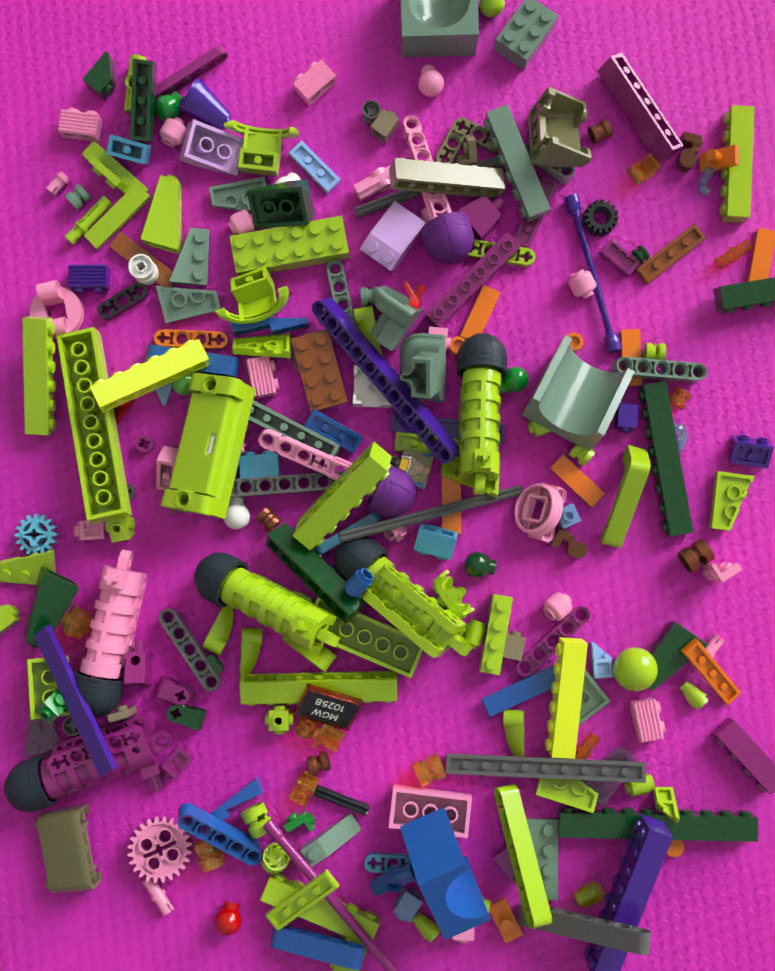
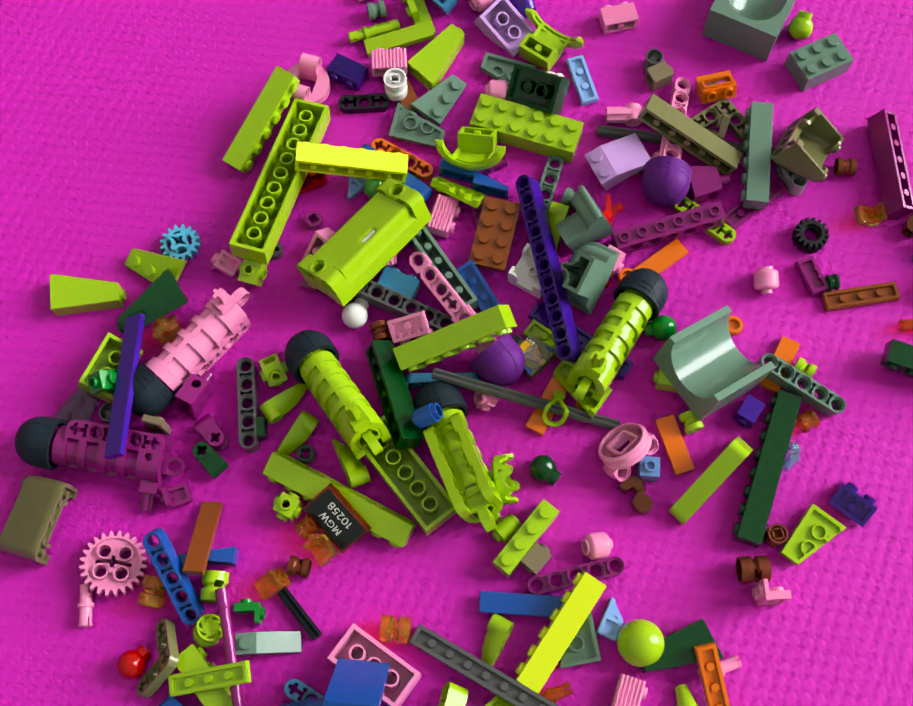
camera: 30 degrees right, 15 degrees down
(122, 247) = (386, 59): none -> bright pink brick
(194, 607) = (273, 370): none -> lime brick
(224, 787) = (202, 538): none -> dark orange tile
(254, 898) = (167, 659): none -> beam
(261, 666) = (306, 460): none -> dark green bush
(293, 504) = (408, 327): none -> bright pink bracket
(430, 81) = (716, 60): bright pink piece -> none
(435, 541) = (515, 427): dark azure brick -> none
(443, 110) = (715, 87): none -> orange window
(458, 494) = (558, 396): none -> lime piece
(574, 206) = (769, 340): dark purple hose -> none
(696, 515) = (772, 537): none -> copper wheel

